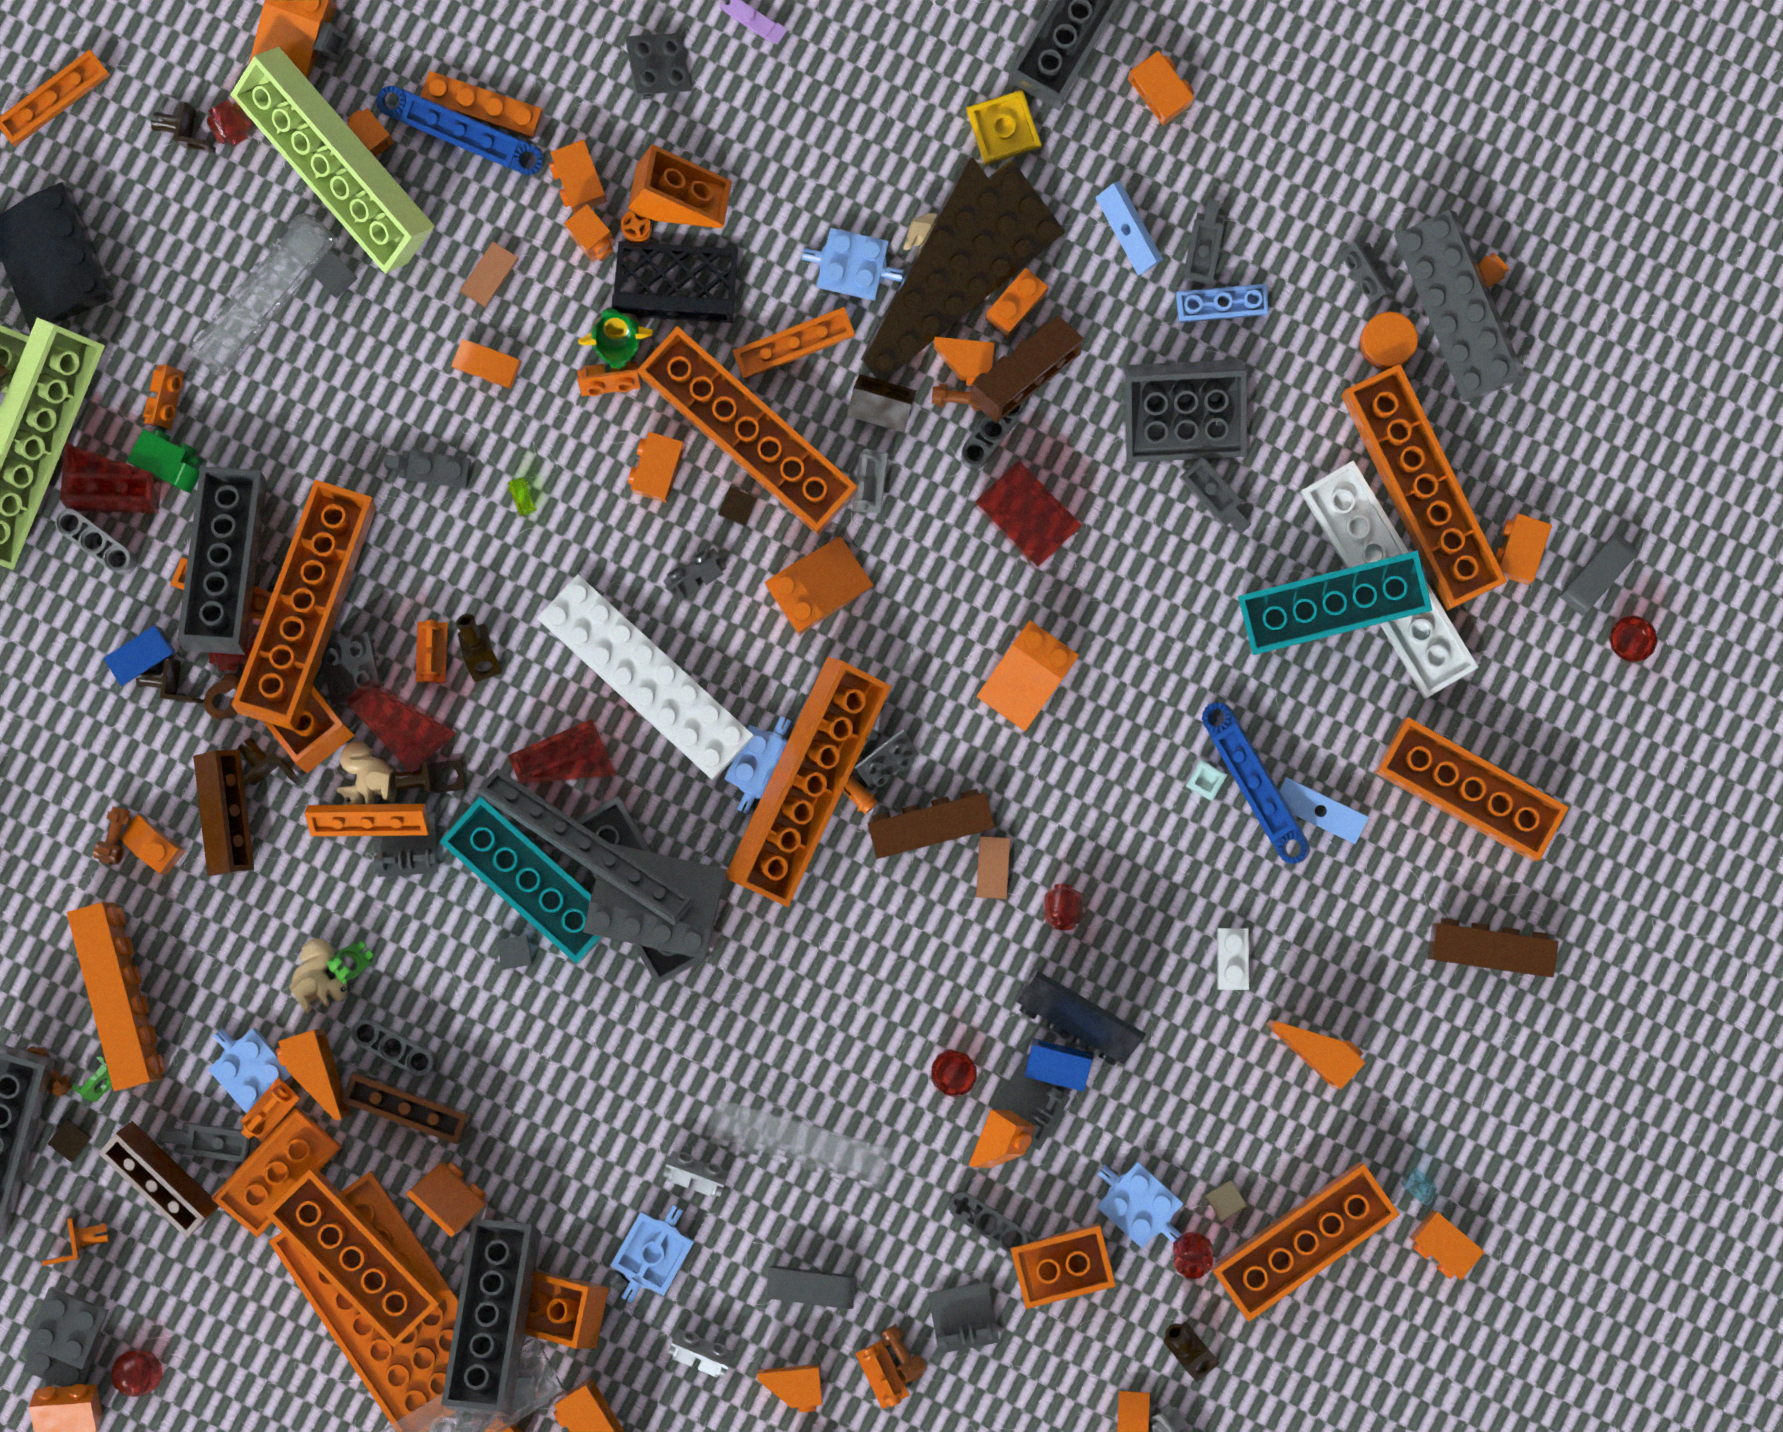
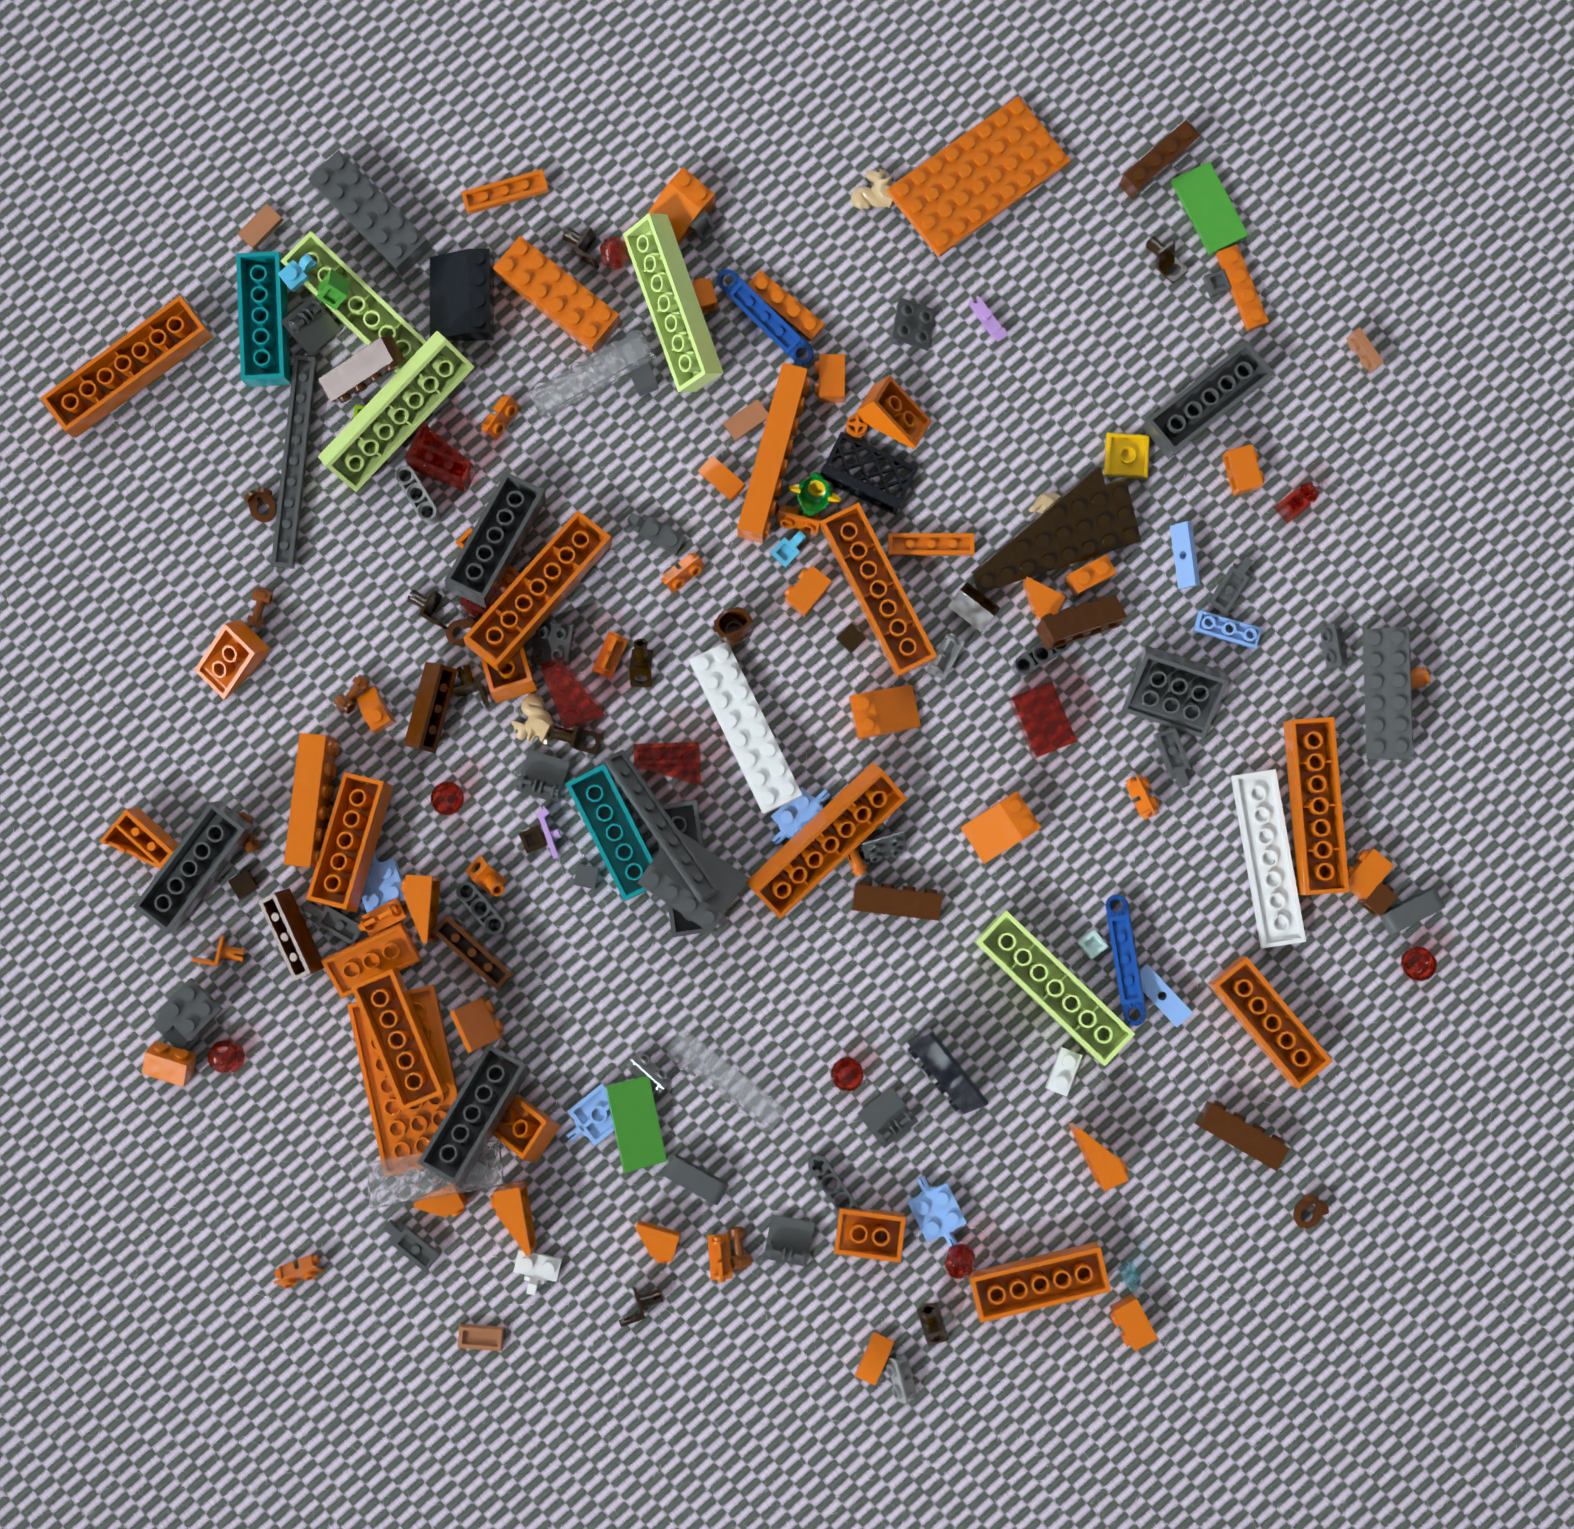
camera: 20 degrees right, 0 degrees up
(87, 1090) = (268, 856): bright green piece -> none
(139, 655) = (416, 581): blue hinge -> none
(167, 461) = (484, 459): green hinge -> none
(175, 207) = (557, 295): none -> orange brick
(188, 1029) = (350, 842): none -> orange brick
(292, 922) = (447, 798): none -> clear red hair
(310, 978) = (444, 840): tan animal -> none
(355, 952) = (482, 840): bright green piece -> none
(367, 820) = (523, 750): orange plate -> none
(385, 1004) = (486, 877): none -> orange bracket
(425, 931) = (533, 839): none -> dark brown tile
(446, 918) = (550, 835): none -> lavender piece
(480, 518) = (690, 567): none -> orange hinge
(521, 496) = (710, 575): clear neon green pin -> none
(540, 305) = (772, 453): none -> orange brick
(578, 550) = (734, 625): none -> reddish brown helmet
(590, 234) = (824, 419): orange brick -> none
(609, 426) = (787, 550): none -> medium azure plate
(617, 1280) = (568, 1123): dark grey piece -> none
(702, 566) = (797, 672): dark grey hinge -> none
(705, 1245) = (636, 1123): none -> bright green tile
(713, 1356) = (598, 1186): light grey hinge -> none
(852, 264) = (990, 507): light blue plate -> none
(941, 395) = (1015, 617): dark orange bar -> none
(993, 867) = (926, 946): nougat tile -> none
(1002, 1139) = (862, 1131): orange slope -> none
(1058, 1064) = (919, 1096): blue hinge -> none
(1063, 907) = (963, 991): clear red head -> none
(1176, 855) = (1054, 987): none -> yellowish green brick
(1205, 569) = (1141, 788): none -> orange hinge
(1225, 1200) = (995, 1232): dark tan tile -> none
(1246, 101) = (1297, 501): none -> clear red brick
(1335, 603) = (1228, 860): teal brick -> none
(1388, 340) = (1330, 698): orange head -> none
(1550, 576) = (1379, 899): none -> reddish brown brick
(1631, 1005) = (1320, 1209): none -> reddish brown piece

